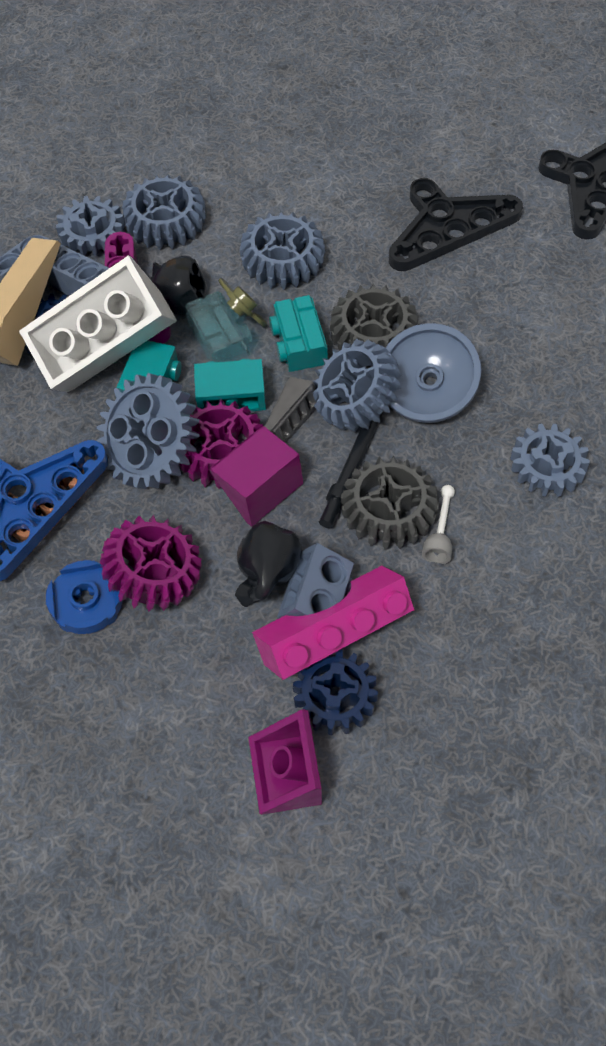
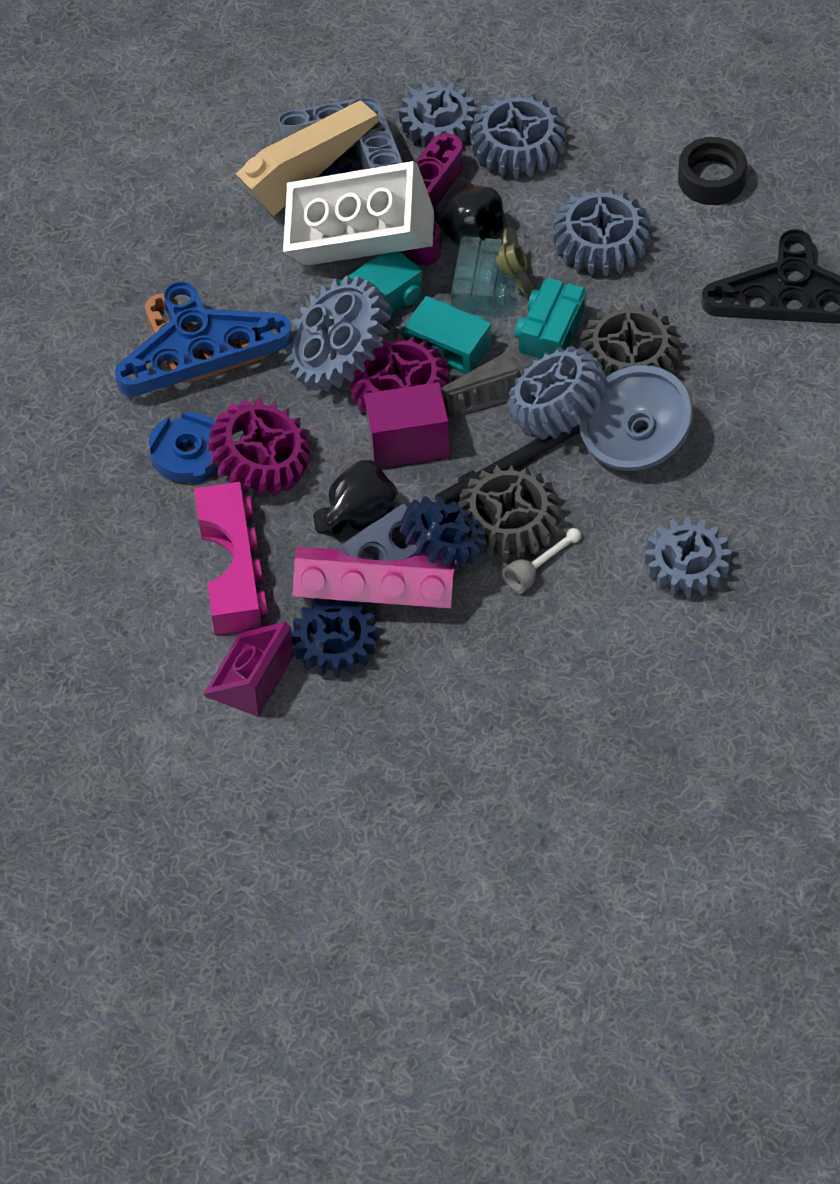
camera: 35 degrees right, 5 degrees down
(163, 642) = (233, 594): none -> dark pink arch
(324, 185) = (712, 191): none -> black tyre
(367, 549) = (442, 532): none -> dark blue gear

